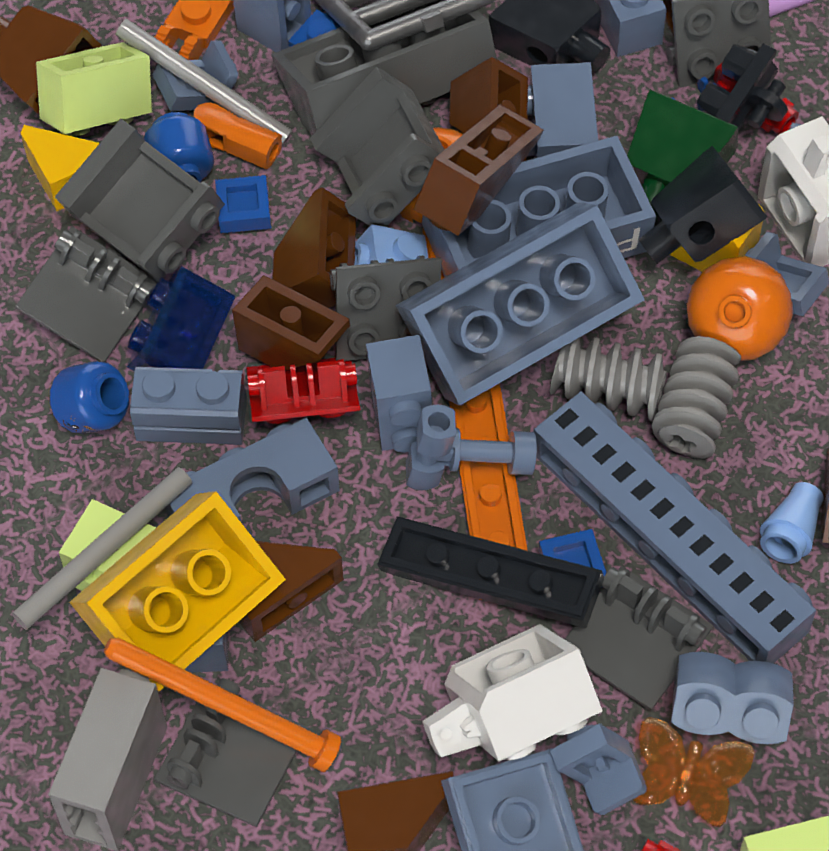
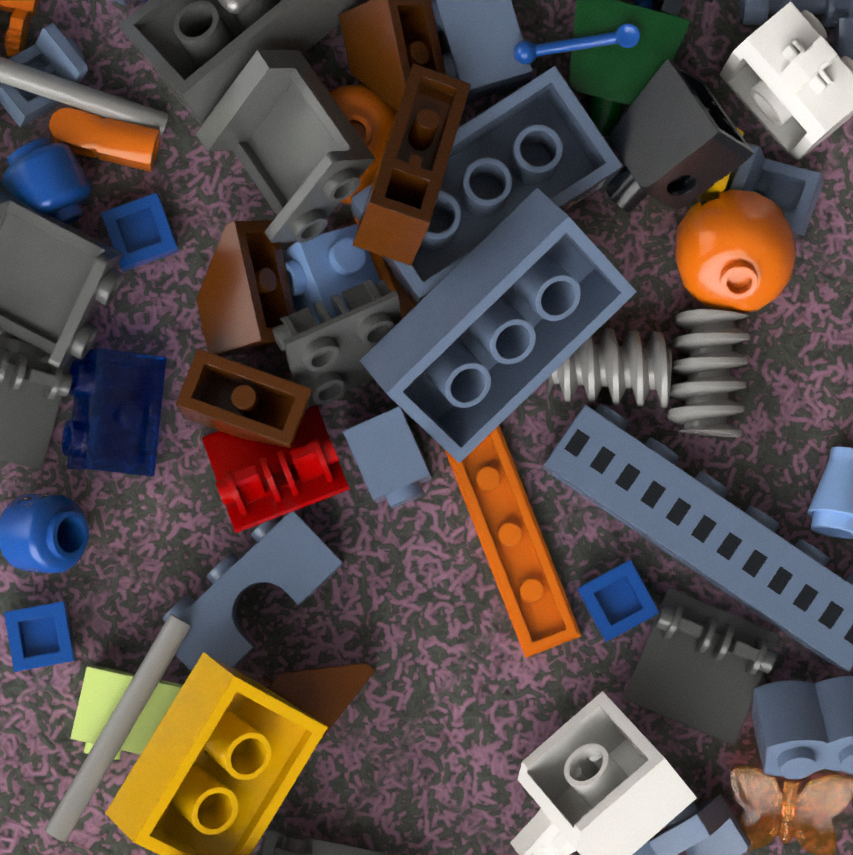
camera: 20 degrees left, 25 degrees up
(60, 482) = (40, 636): none -> blue plate
(188, 405) = (154, 514): sand blue brick -> none
(441, 445) = (455, 510): sand blue bar -> none
(491, 571) = (534, 636): black tile -> none
(681, 127) = (626, 36): none -> blue hinge

